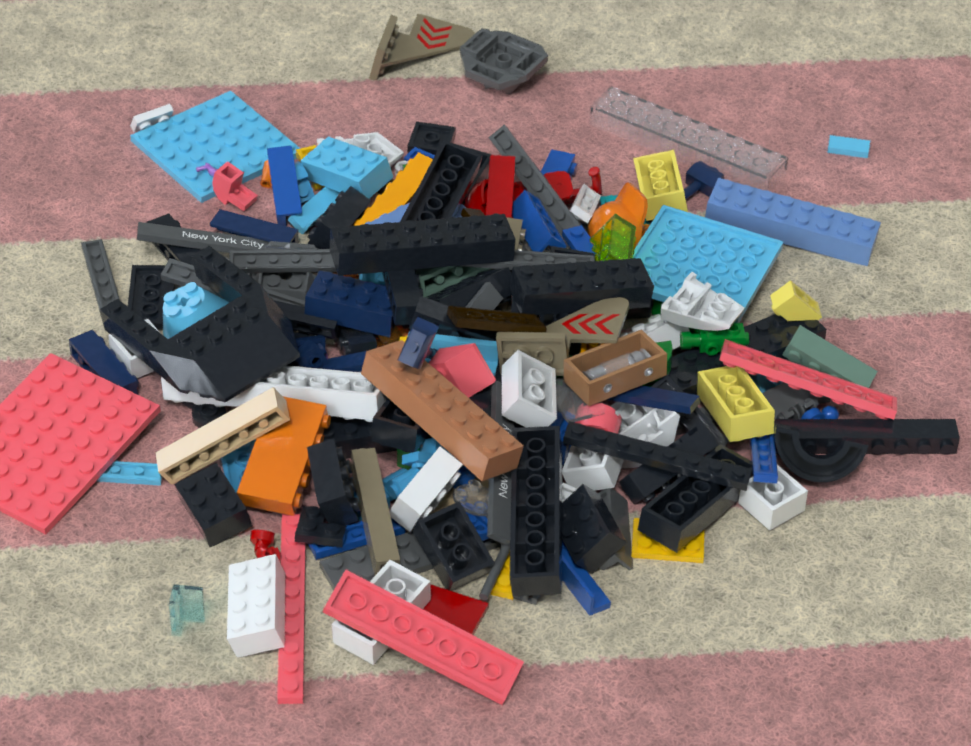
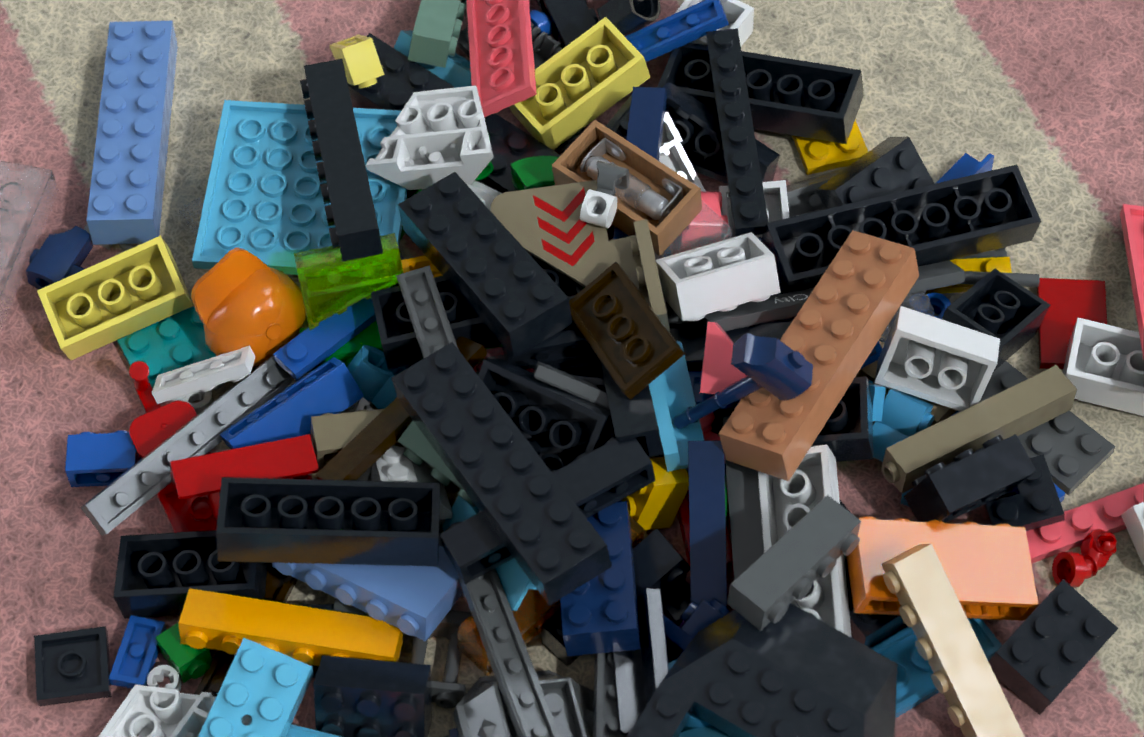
camera: 105 degrees left, 15 degrees up
(300, 352) = (794, 563): none -> dark grey brick
(593, 328) = (601, 205): none -> leg
(696, 255) = (342, 161): none -> black brick

